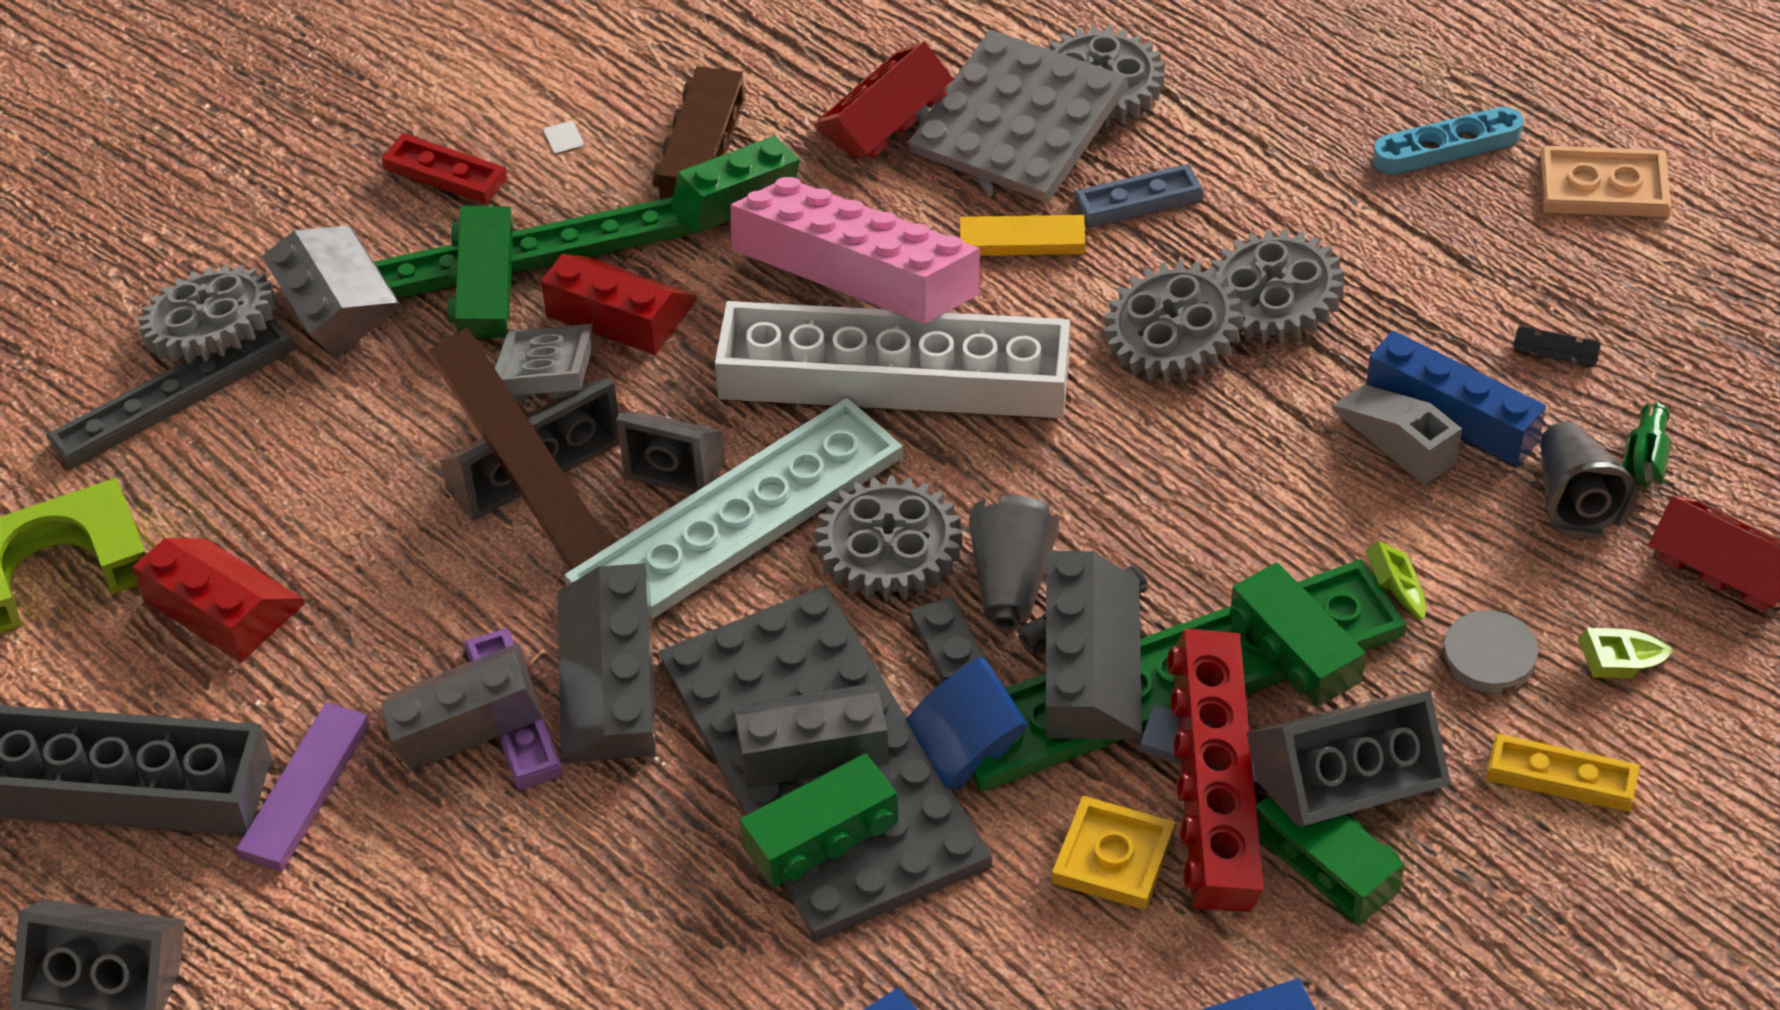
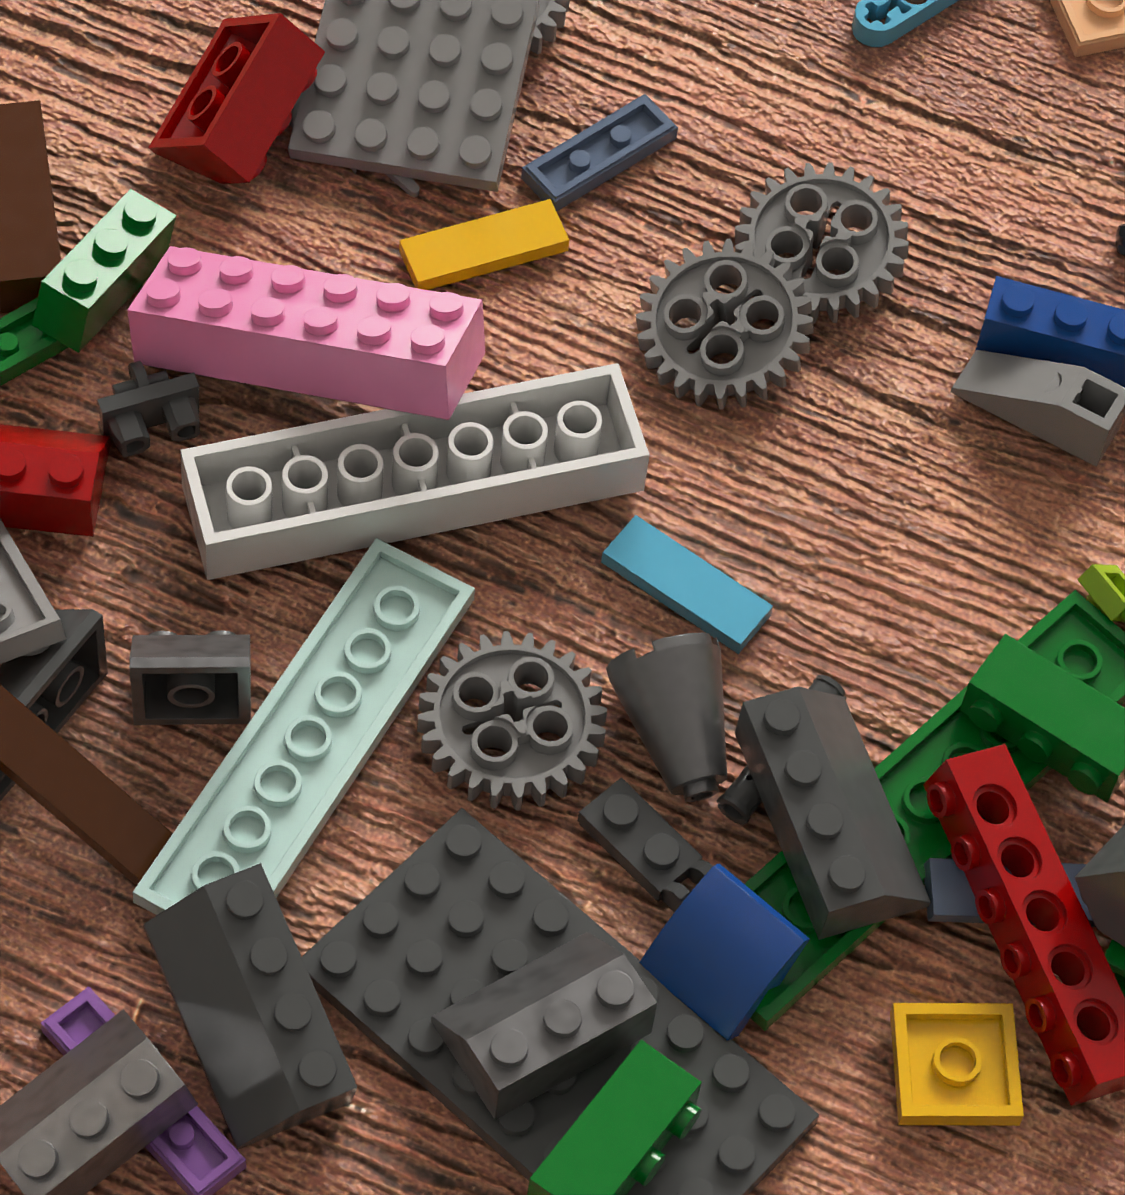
camera: 30 degrees left, 10 degrees up
(727, 278) = (147, 403): none -> dark grey hips
(1066, 486) = (687, 584): none -> medium azure tile

